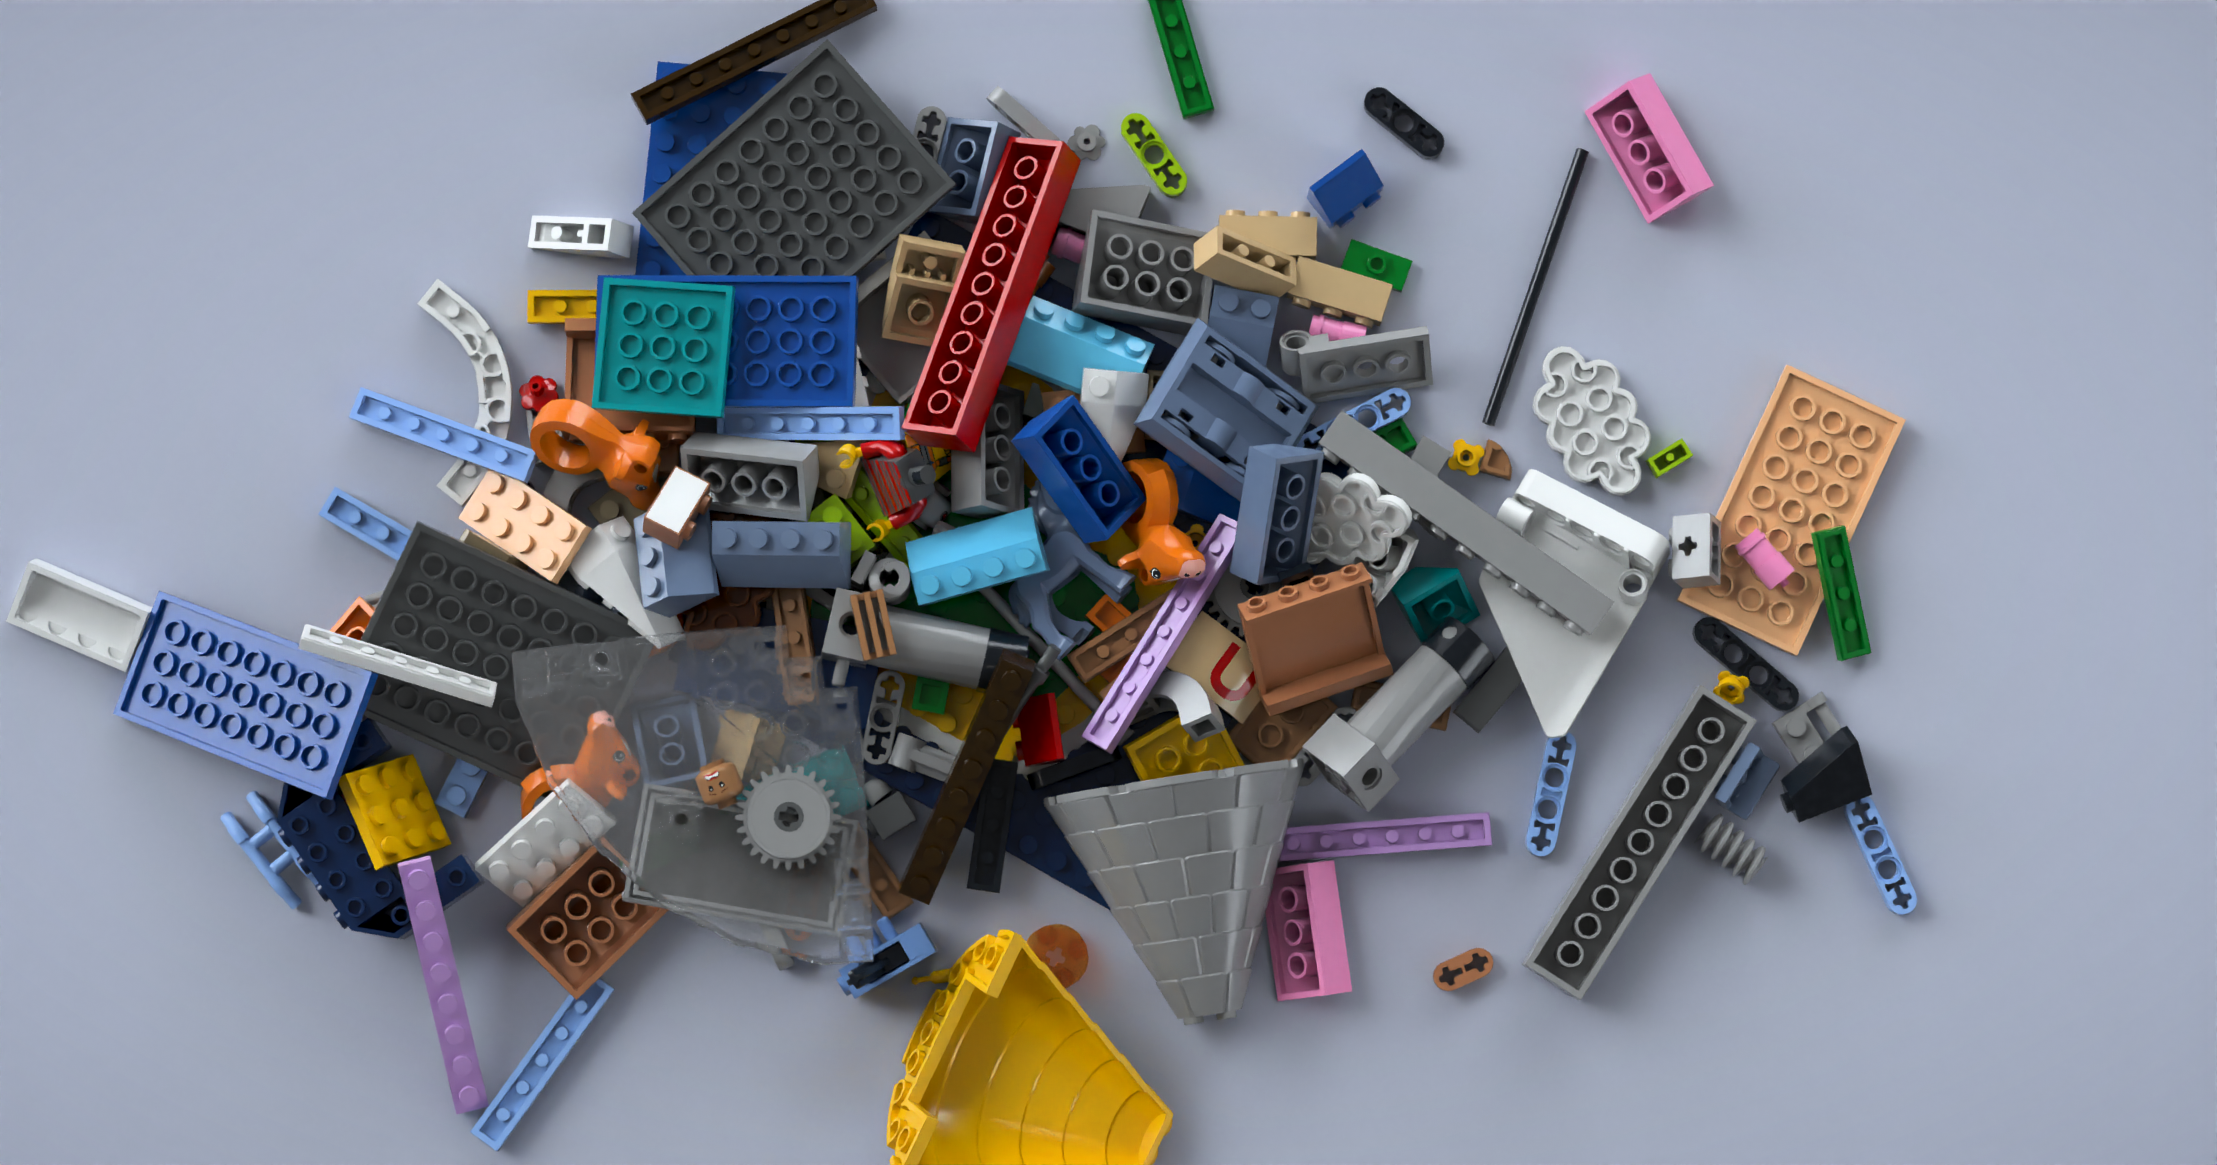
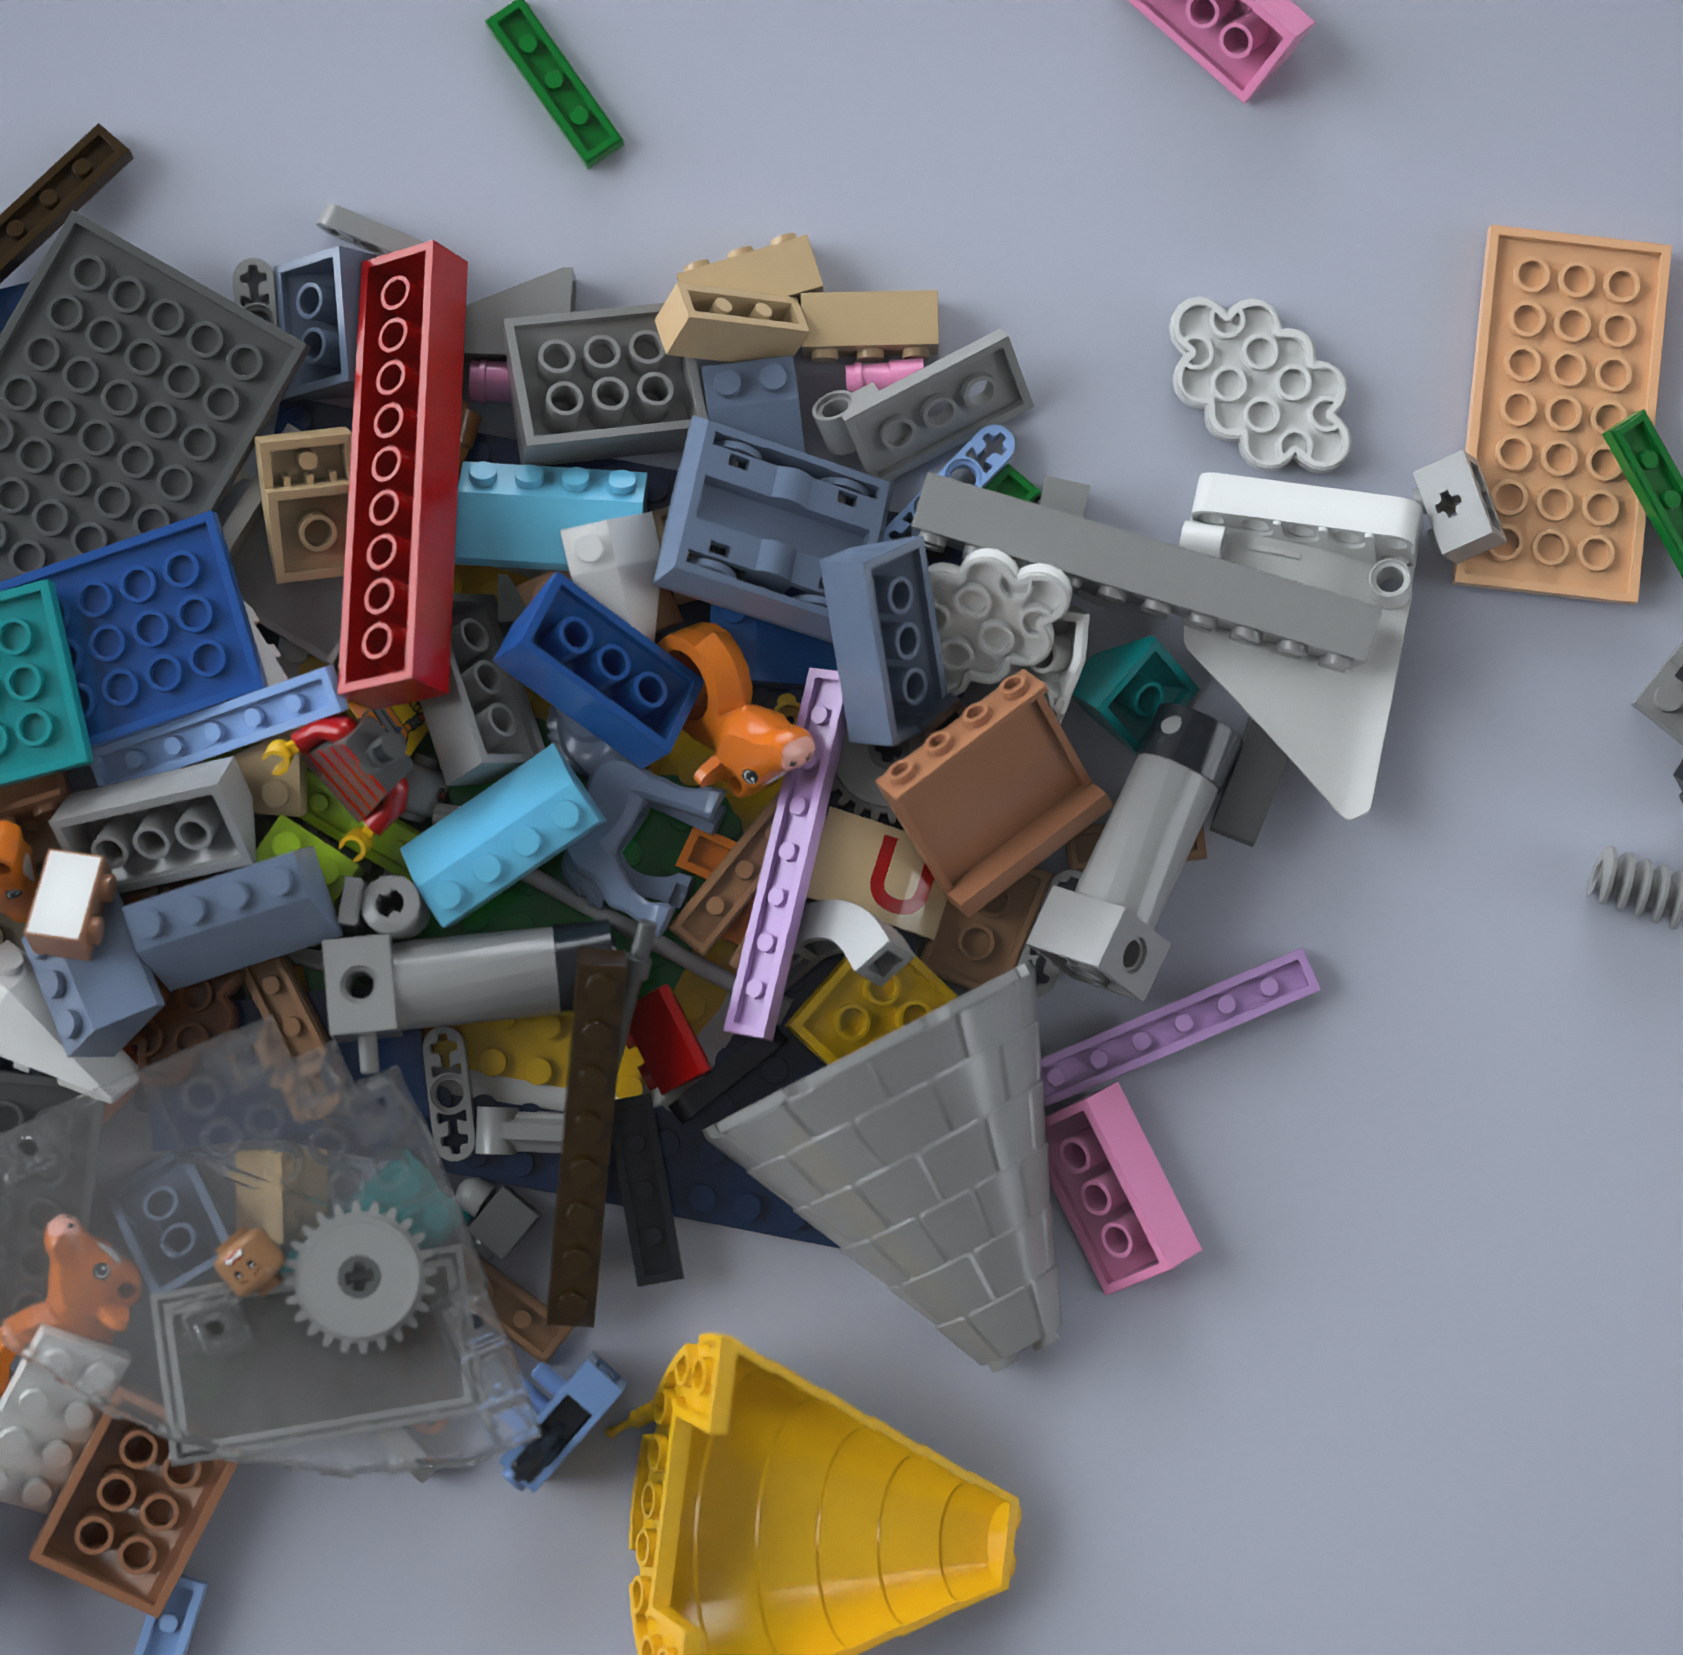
camera: 20 degrees left, 0 degrees up
(867, 596) = (367, 940): medium nougat tile -> none
(930, 695) = (503, 1043): green plate -> none
(1072, 948) = (810, 1320): clear orange plate -> none
(1092, 150) = (480, 248): light grey plant -> none
(1133, 140) = (530, 217): lime beam -> none
(1346, 190) = (832, 186): blue slope -> none
(1376, 264) = (907, 272): green plate -> none
(1379, 115) = (844, 77): black beam -> none
(1457, 461) = (1101, 497): yellow plate -> none
(1466, 976) = (1345, 1177): nougat beam -> none
(1495, 461) = (1151, 480): medium nougat tile -> none
(1535, 287) = (1125, 236): black piece -> none
(1554, 794) = (1381, 894): light blue beam -> none
(1639, 842) = (1516, 921): light grey brick -> none
(1669, 458) = (1378, 400): lime piece -> none
(1731, 695) = (1564, 685): yellow plate -> none
(1743, 667) = (1573, 632): black beam -> none
(1746, 781) = (1630, 791): sand blue bracket -> none
(1766, 561) = (1556, 490): bright pink piece -> none

